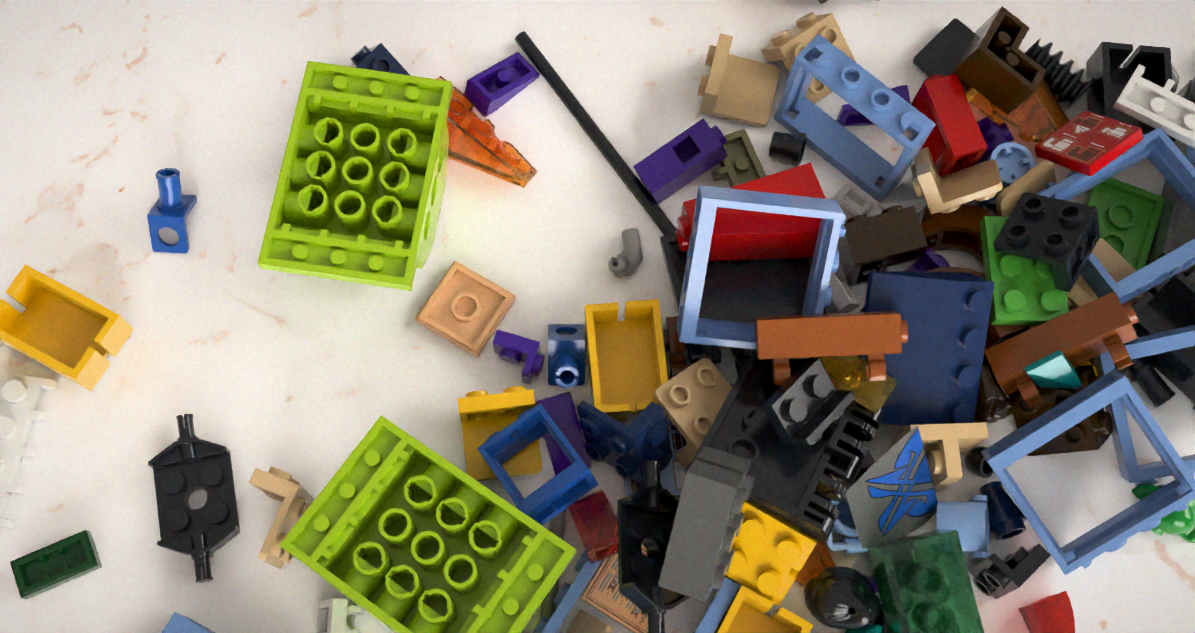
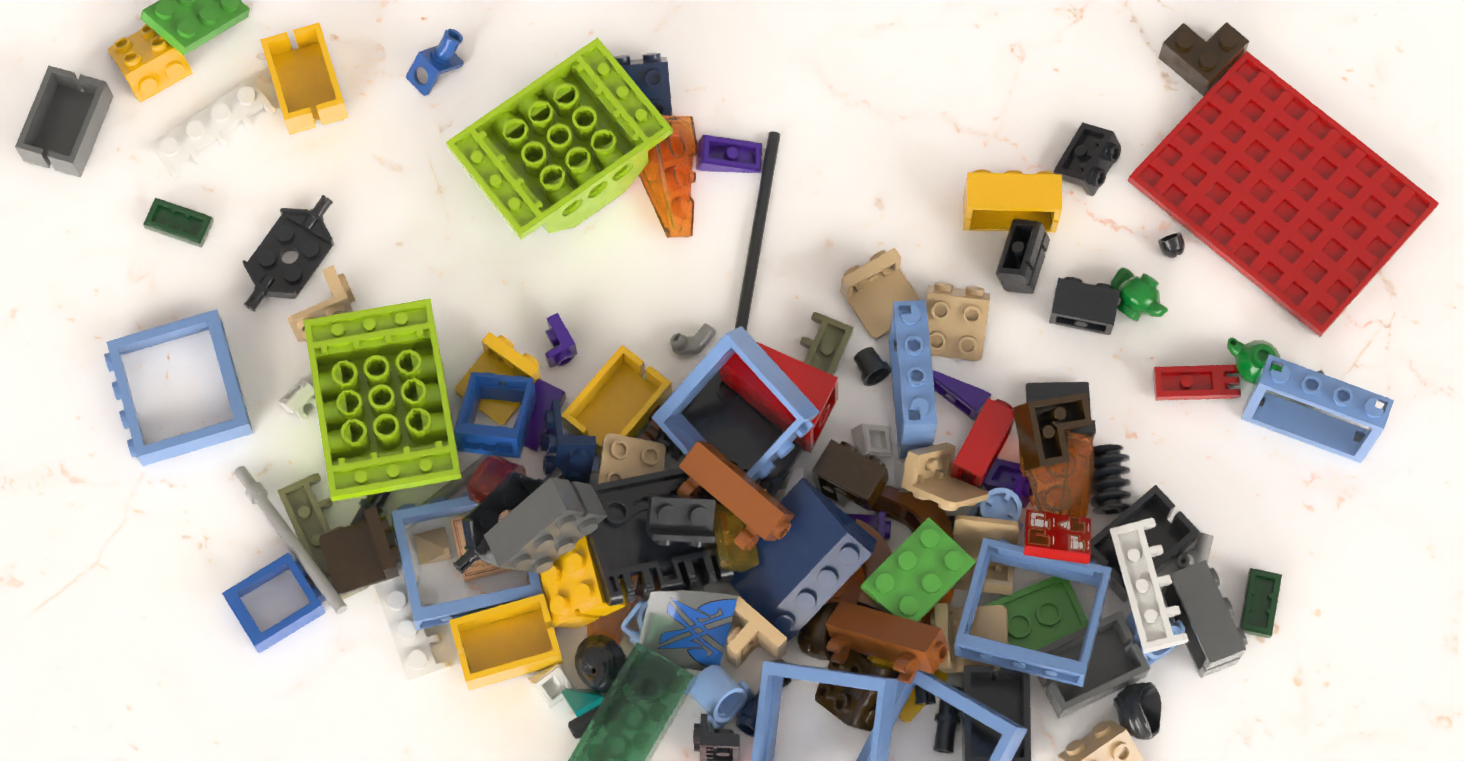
camera: 50 degrees right, 0 degrees up
(466, 309) = (557, 284): light nougat tile -> none
(566, 355) = (584, 367): blue bracket -> none
(682, 160) = (785, 310): dark purple brick -> none
(1051, 233) = (948, 566): black bracket -> none
(1054, 372) = (861, 647): teal slope -> none

